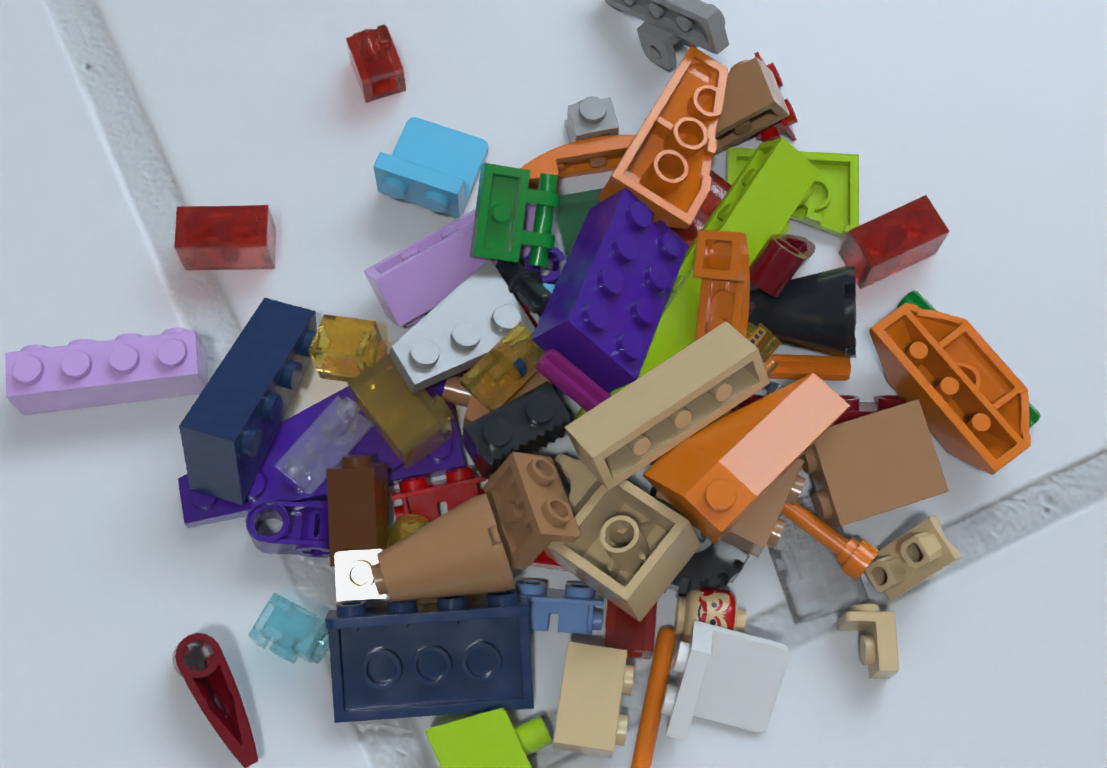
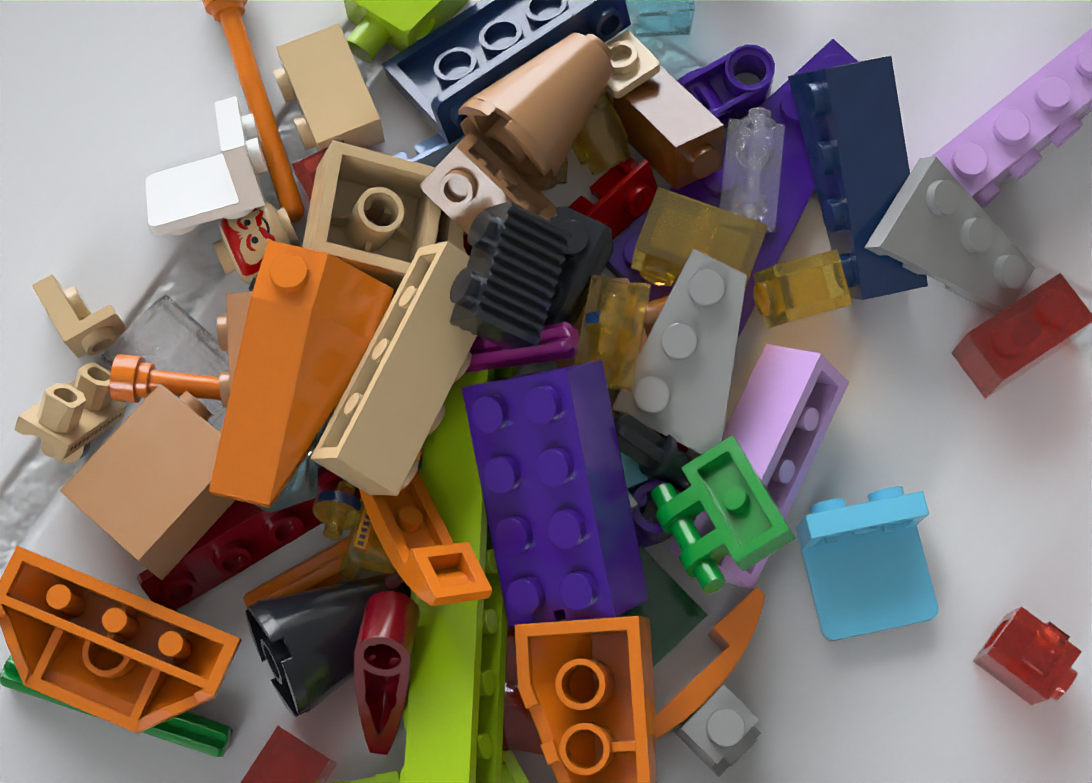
camera: 150 degrees right, 5 degrees up
(230, 312) = (949, 237): none -> light grey wing
(563, 411) = (509, 276): none -> black brick

